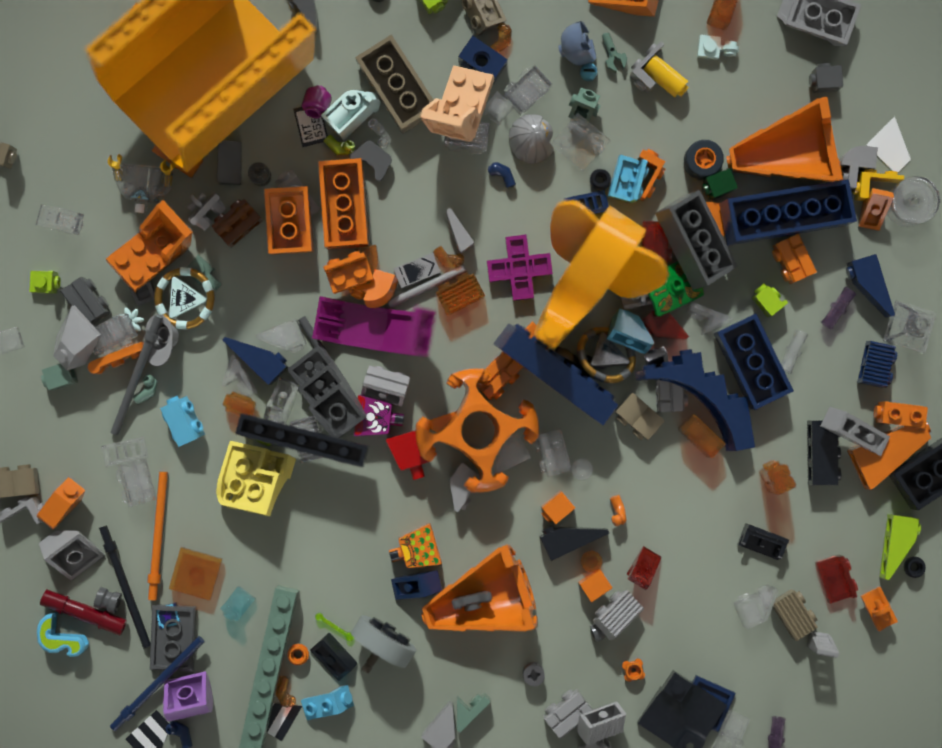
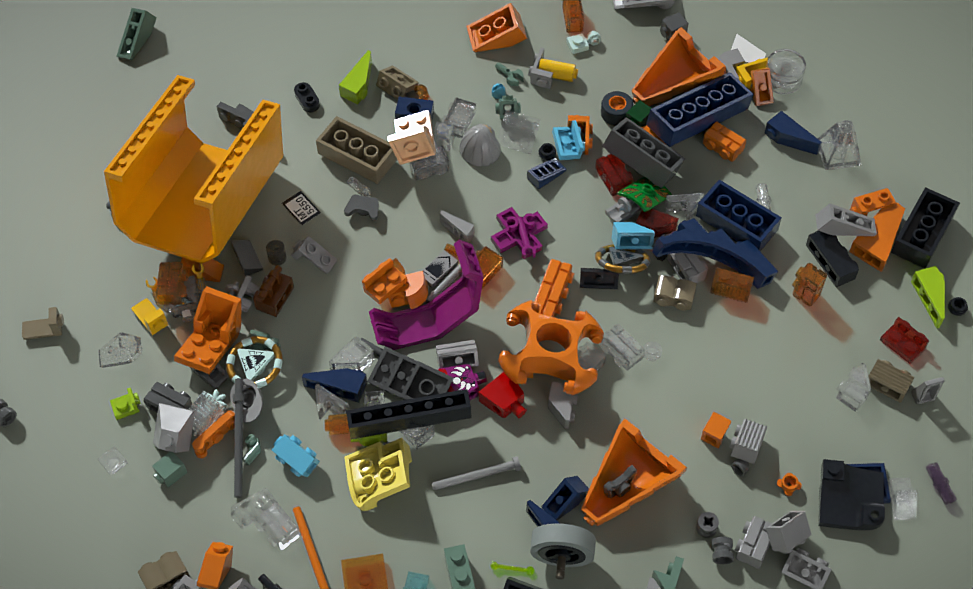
camera: 25 degrees left, 30 degrees down
(104, 190) = (151, 318): none -> yellow bracket
(133, 172) = (171, 283): none -> clear orange brick
(288, 220) = (317, 271): orange slope -> none
(316, 101) = (298, 186): magenta head -> none
(339, 148) = (332, 212): lime arm -> none
(343, 203) = (354, 241): orange brick -> none
(345, 117) = (329, 182): light aqua piece -> none
(385, 603) = (538, 515): none -> dark blue slope
(387, 526) = (515, 464): none -> light grey bar
(417, 548) = (551, 467): torso -> none
(502, 171) = (473, 177): dark blue arm -> none
(524, 262) = (522, 223): none -> magenta bar
(532, 706) = (722, 550): none -> dark grey wheel
(557, 508) = (649, 385): orange brick -> none
(561, 377) = (591, 279): dark blue brick -> none
(567, 539) = (672, 404): black slope -> none
(577, 45) = (480, 74): sand blue cylinder -> none
(591, 561) = (701, 415): clear orange plate -> none
(600, 259) = (578, 182): light orange animal -> none
(618, 506) = (703, 370): orange arm -> none
(644, 568) = (747, 401): clear red slope -> none
(763, 541) = (829, 338): black hinge -> none
(768, 300) = (723, 172): lime brick -> none
(838, 308) = (778, 160): clear purple pin -> none
(877, 364) = (831, 182): dark blue brick -> none
(879, 608) = (951, 344): orange hips -> none

